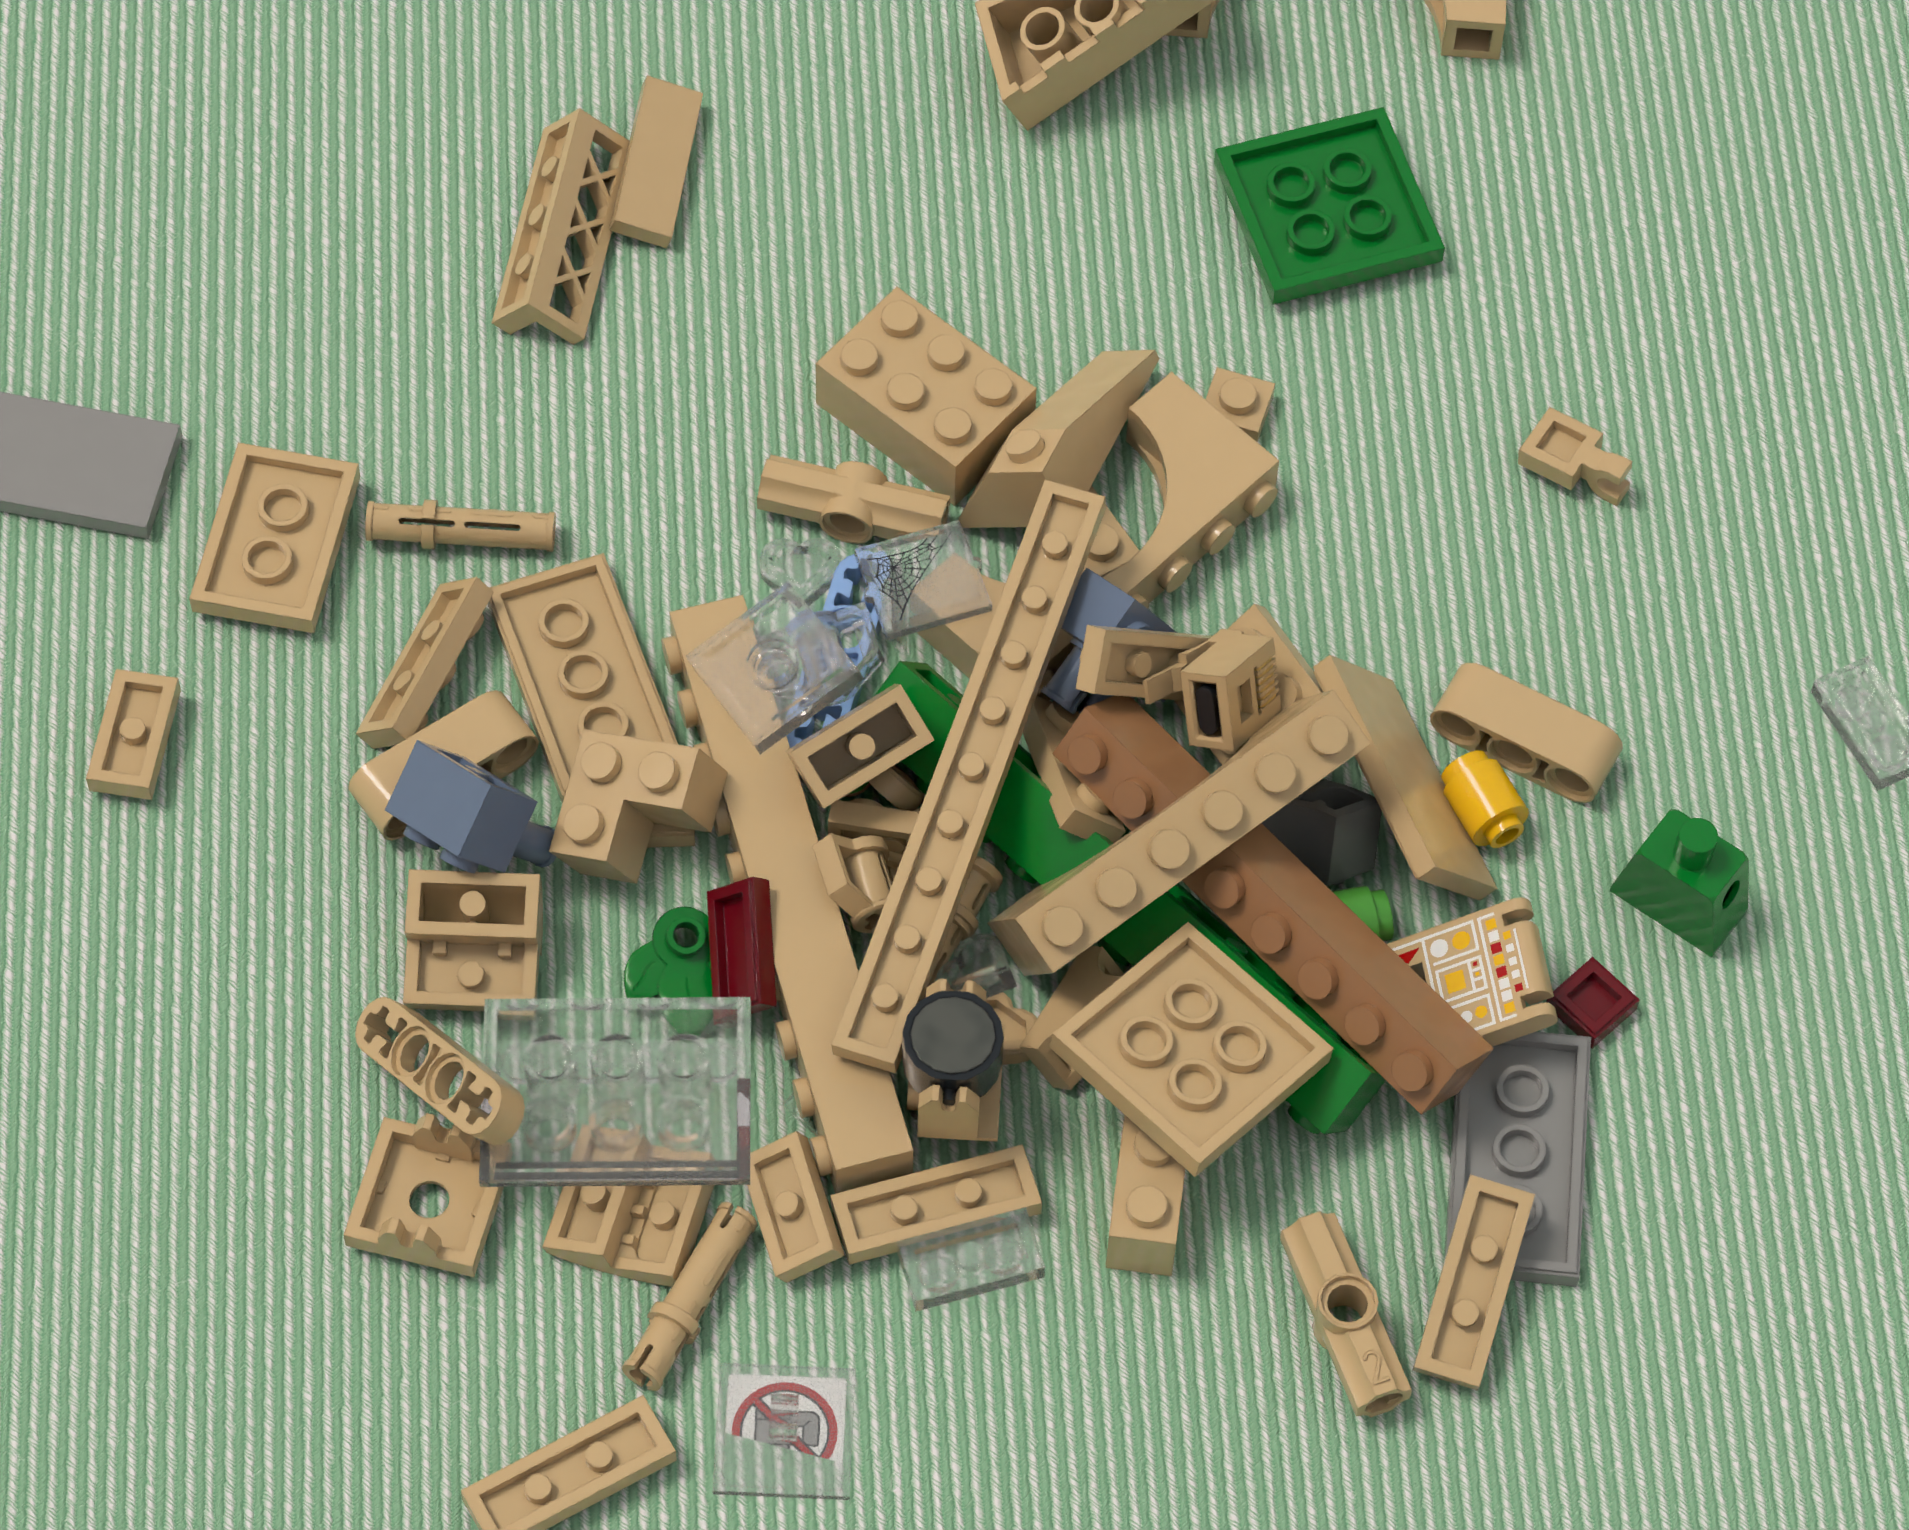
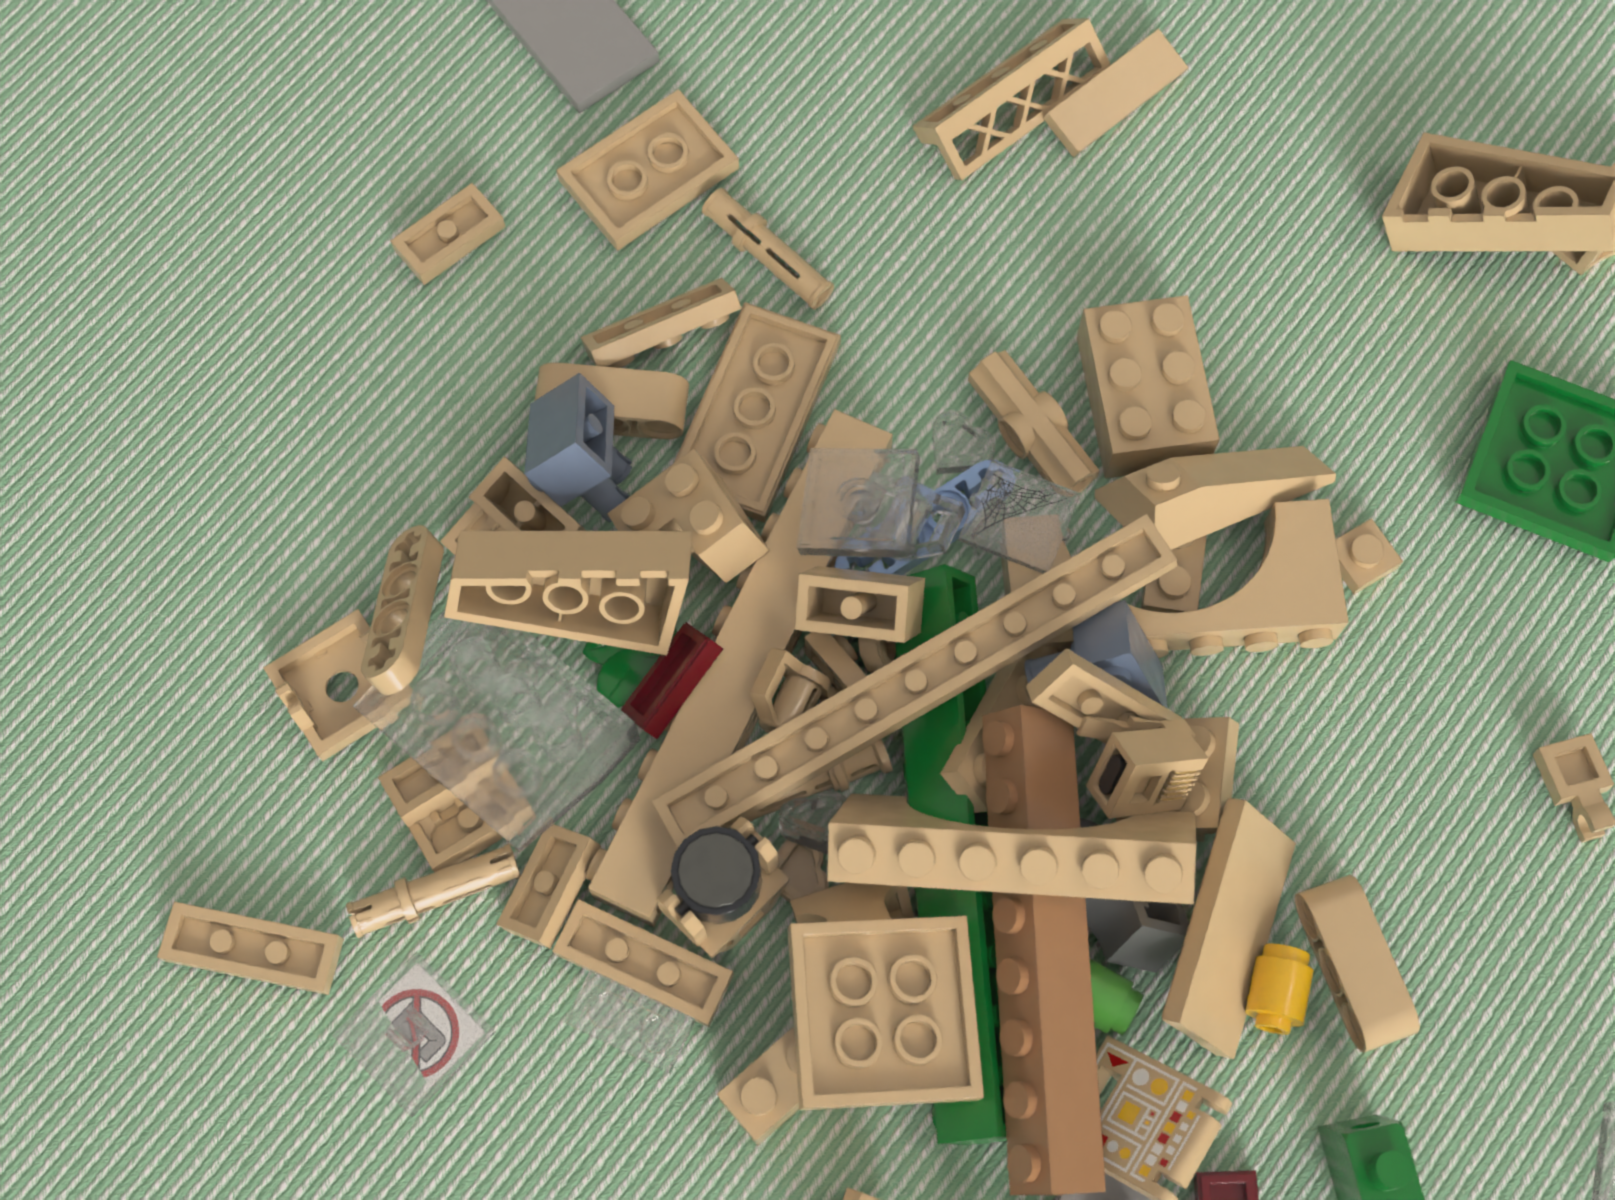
camera: 45 degrees right, 10 degrees up
(591, 917) = (574, 584): none -> tan wedge

